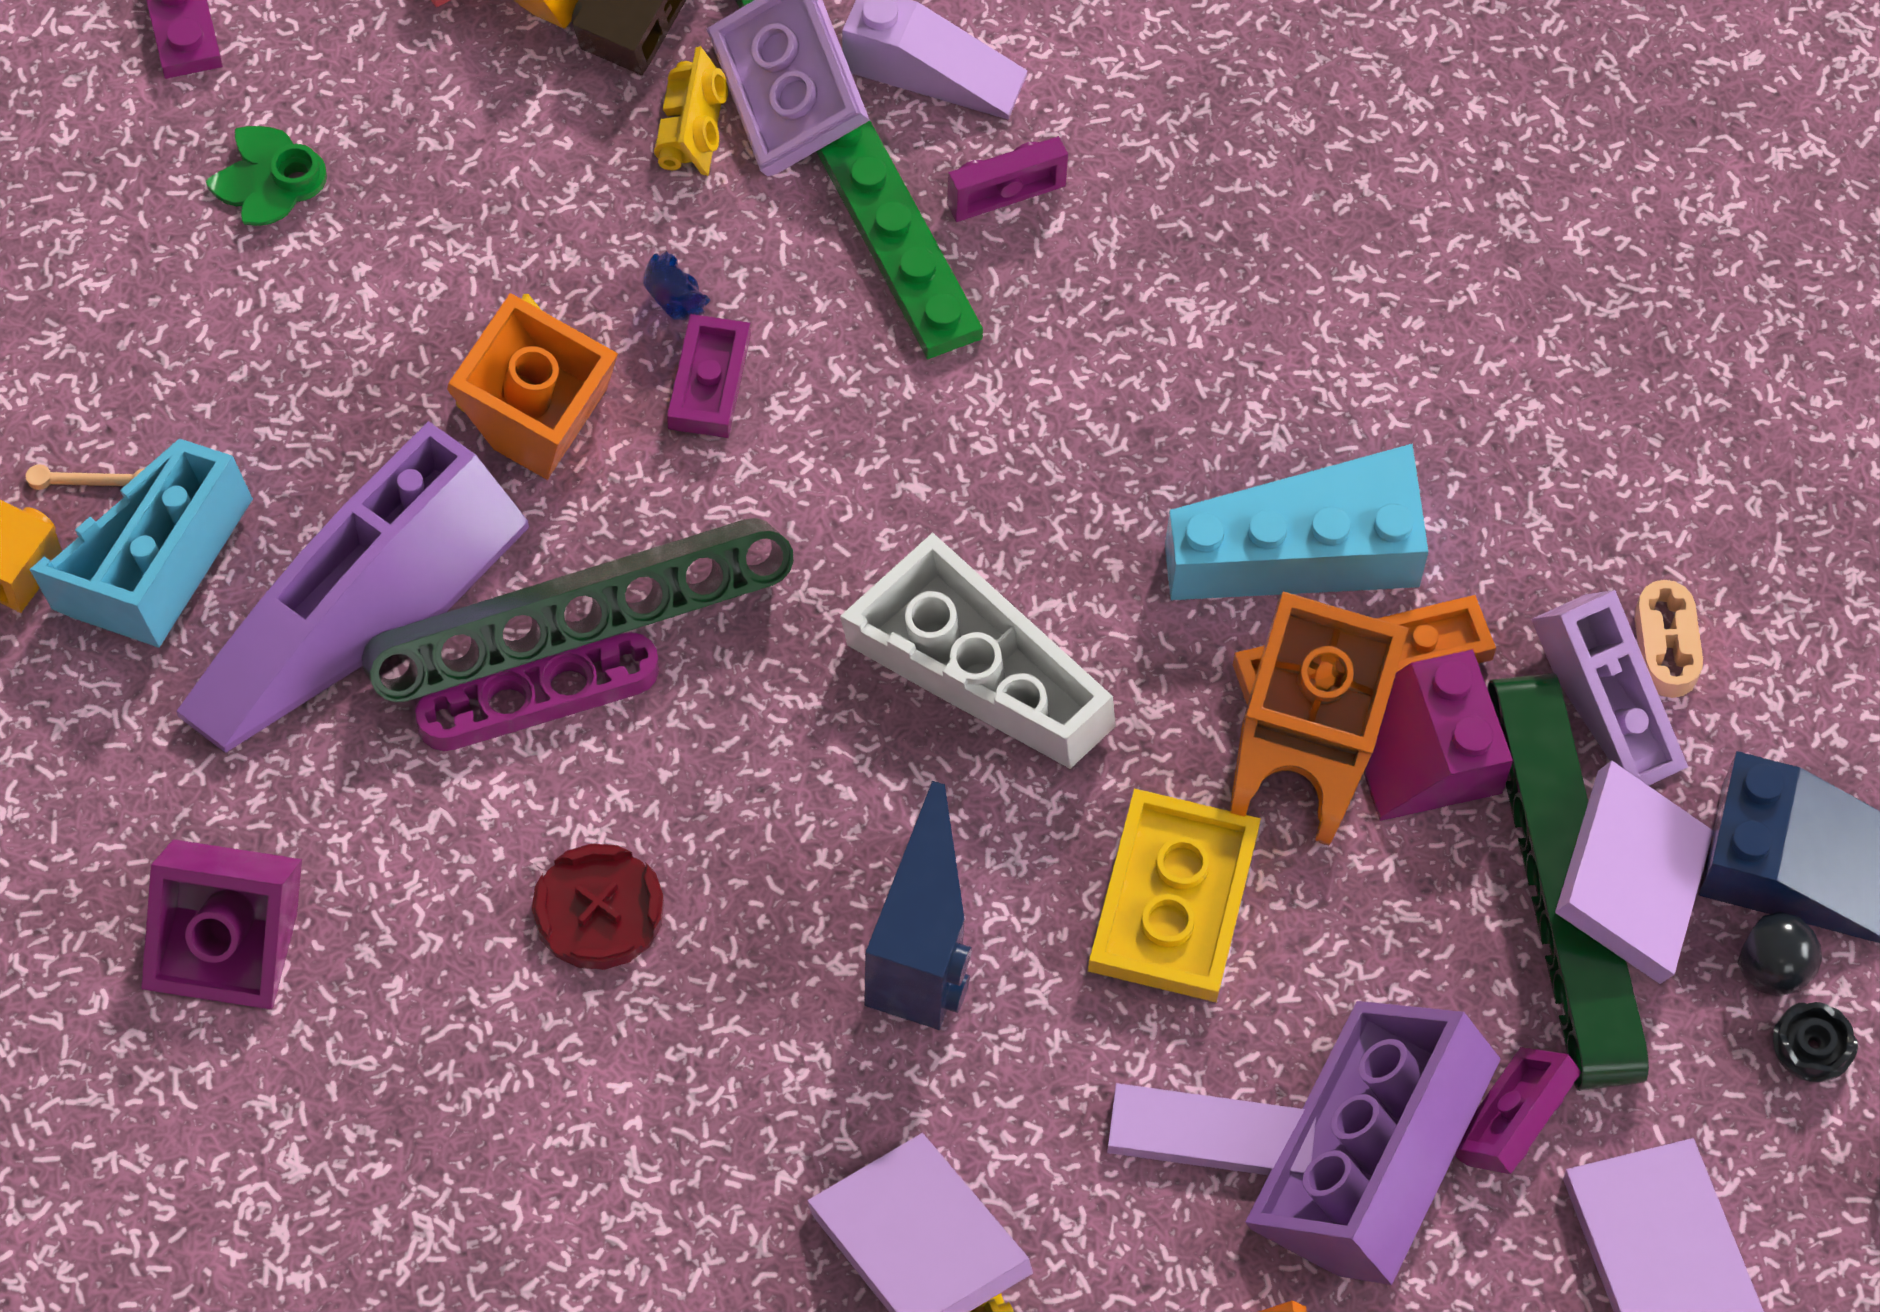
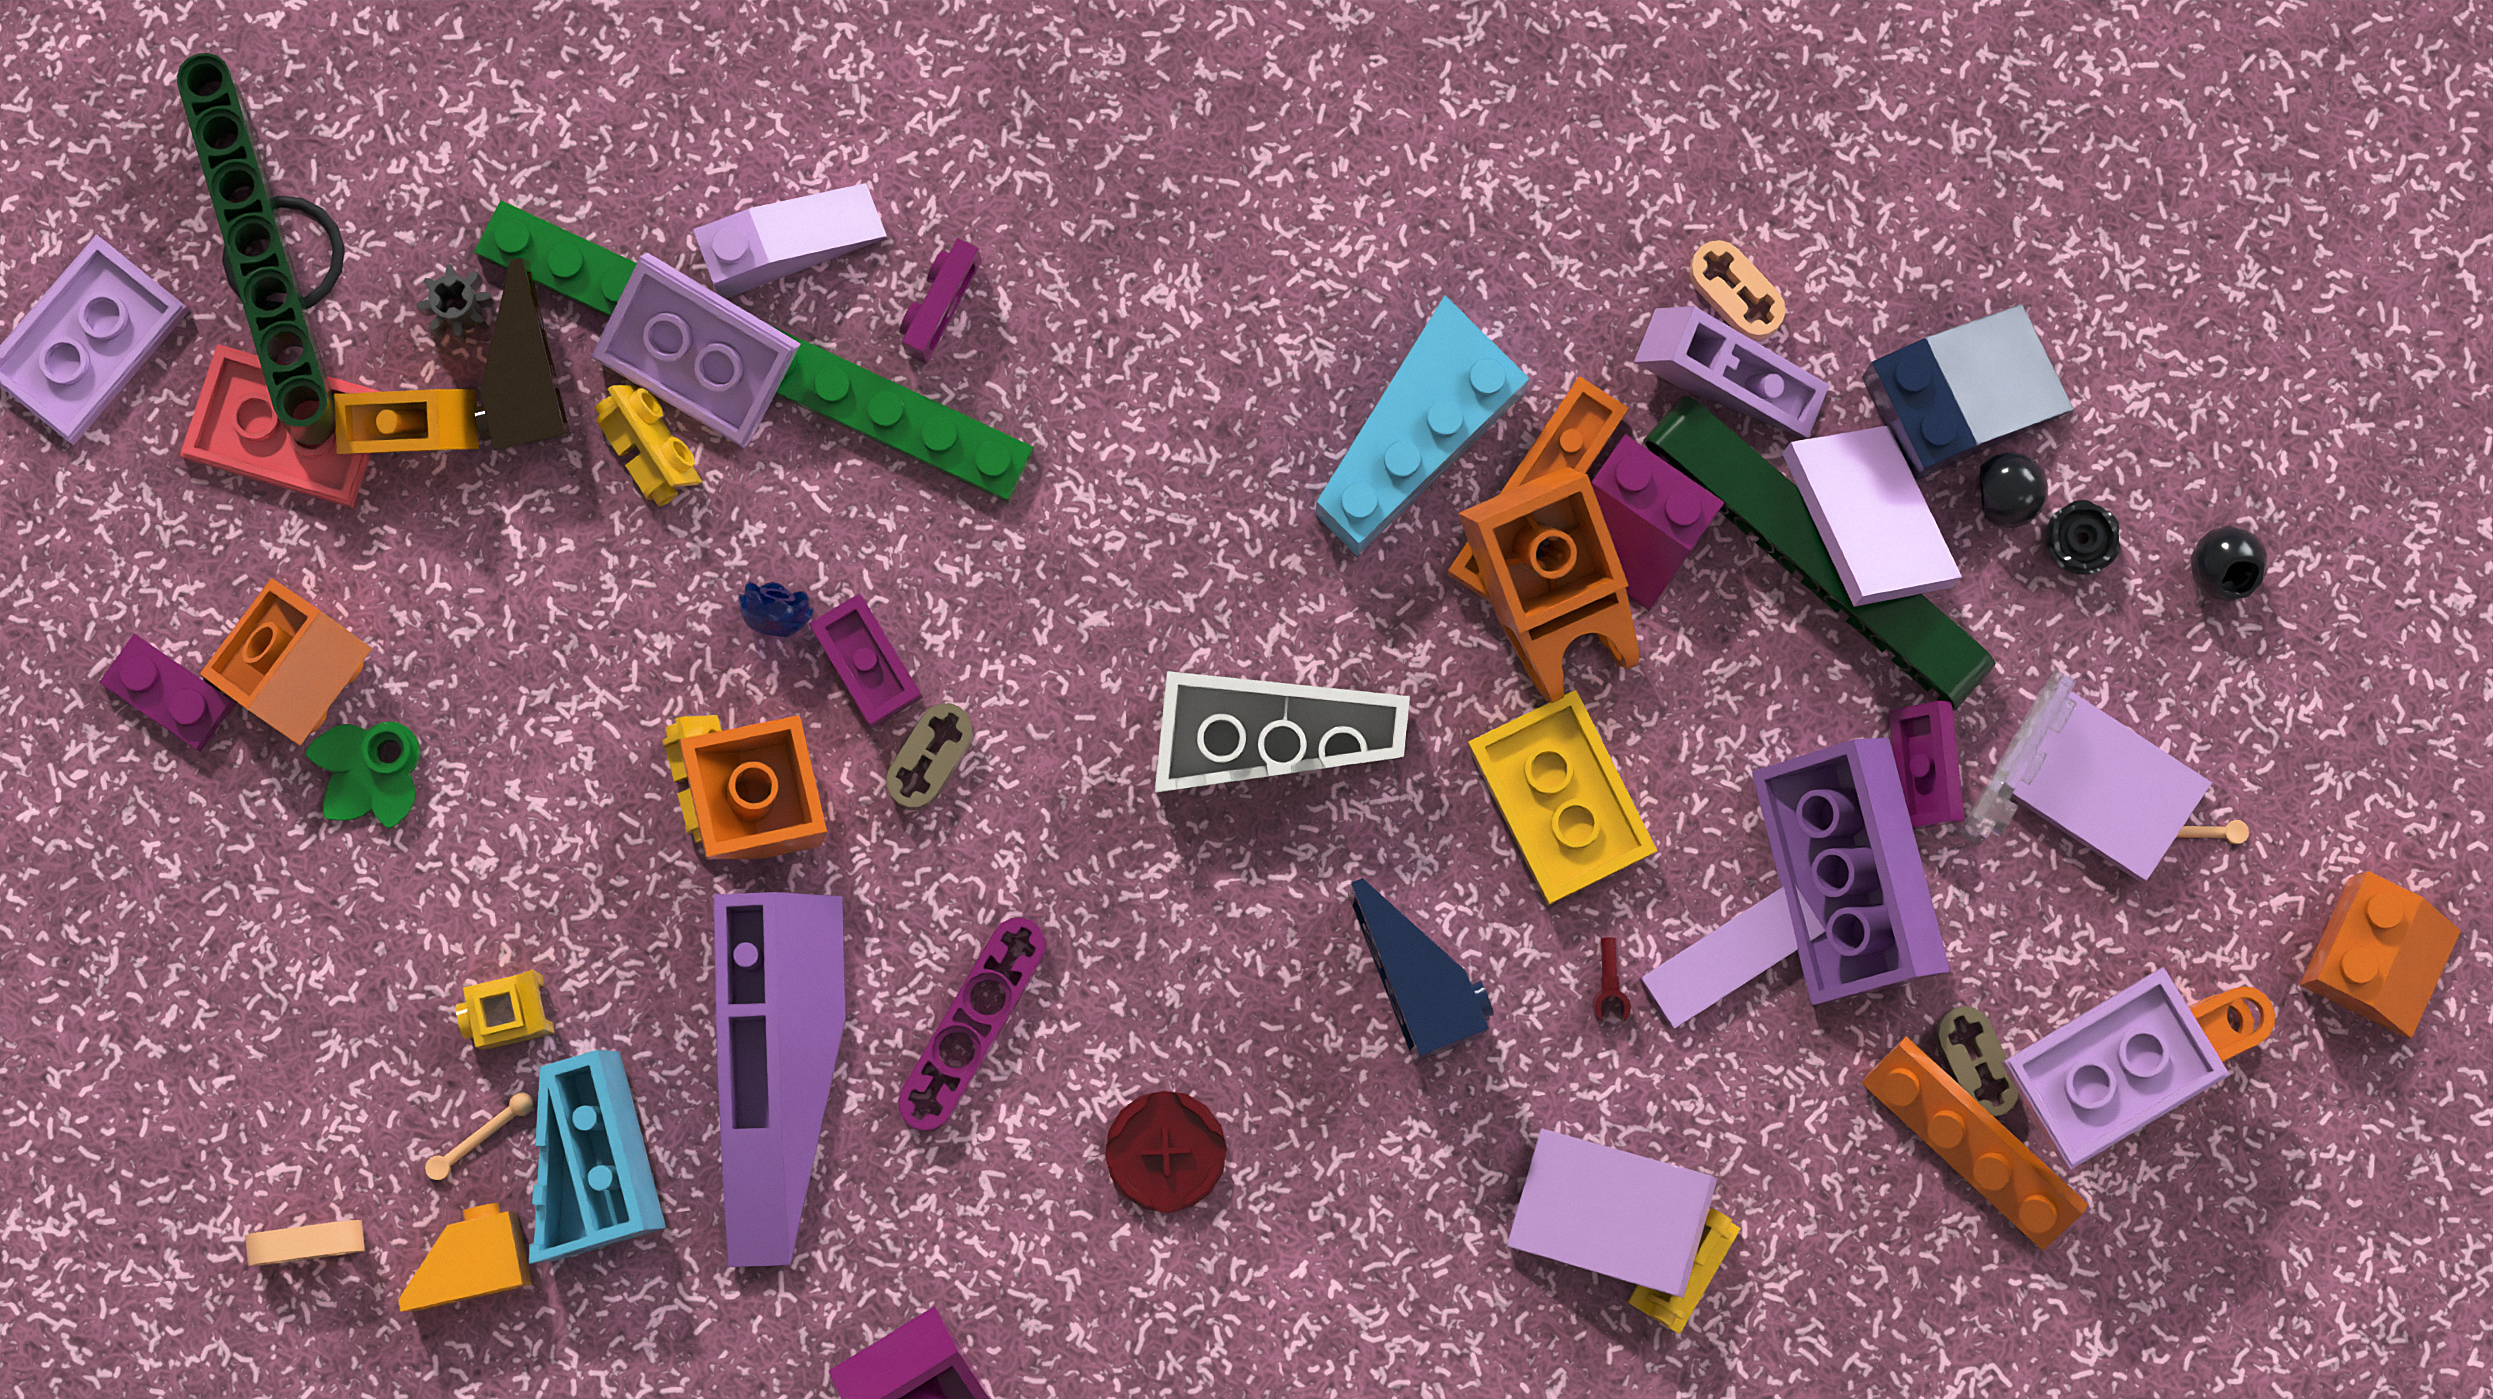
camera: 40 degrees left, 20 degrees up
(195, 399) = (504, 1011): none -> yellow window
(285, 62) = (286, 662): none -> orange slope
(548, 600) = (949, 941): dark green beam -> none
(693, 480) = (918, 747): none -> dark tan beam
(1085, 1070) = (1610, 980): none -> dark red hand
(1602, 1156) = (2021, 759): none -> clear plate

